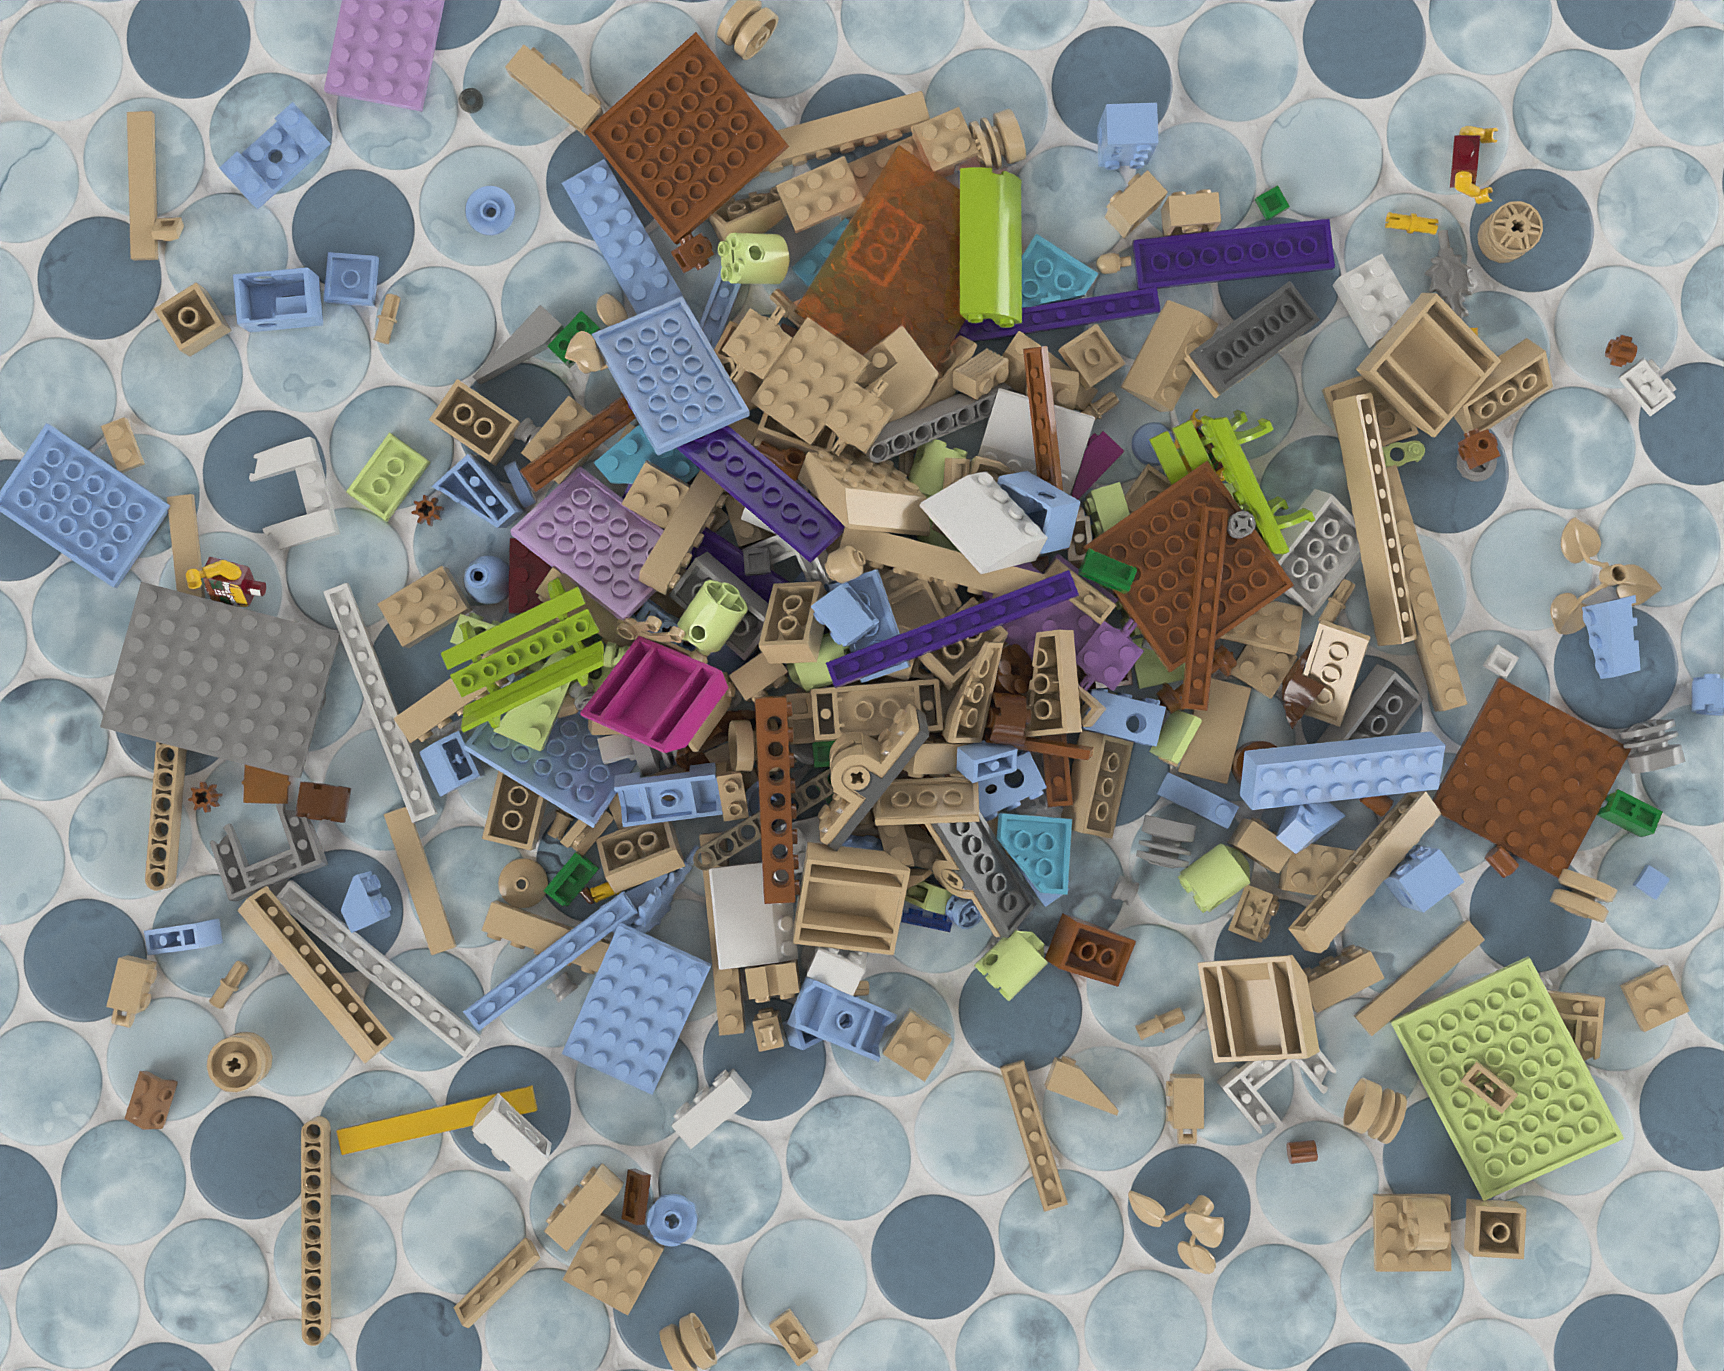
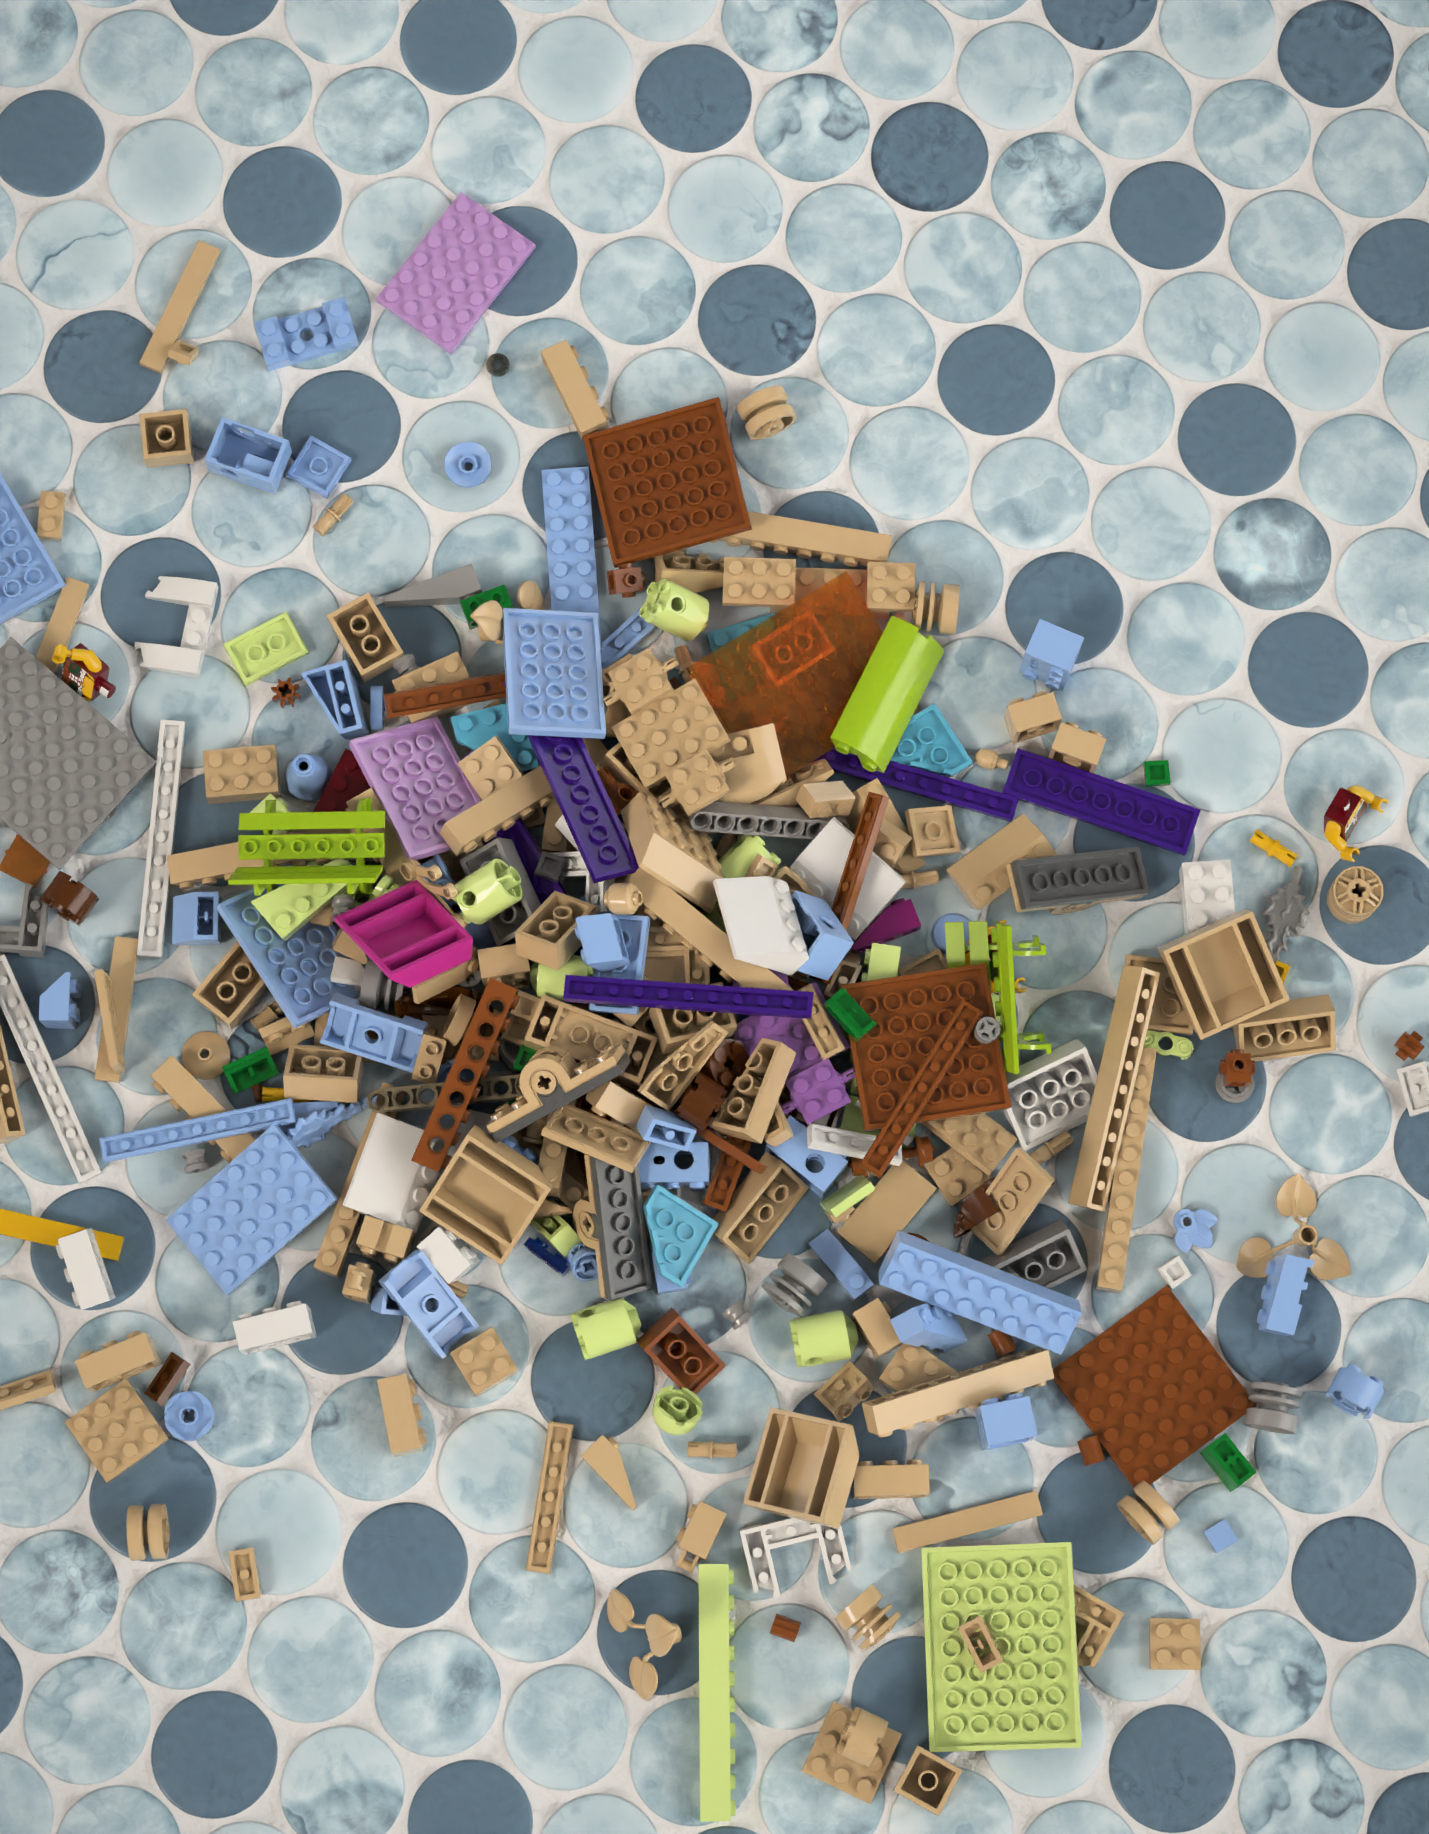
camera: 25 degrees right, 10 degrees down
(418, 900) = (109, 1021): none -> tan tile
(866, 1131) = (402, 1415): none -> tan brick
(1113, 1006) = (676, 1410): none -> yellowish green cylinder
(1150, 691) = (843, 1142): none -> white tile
(1266, 1240) = (714, 1692): none -> yellowish green brick
(1503, 614) = (1197, 1230): none -> light blue plate

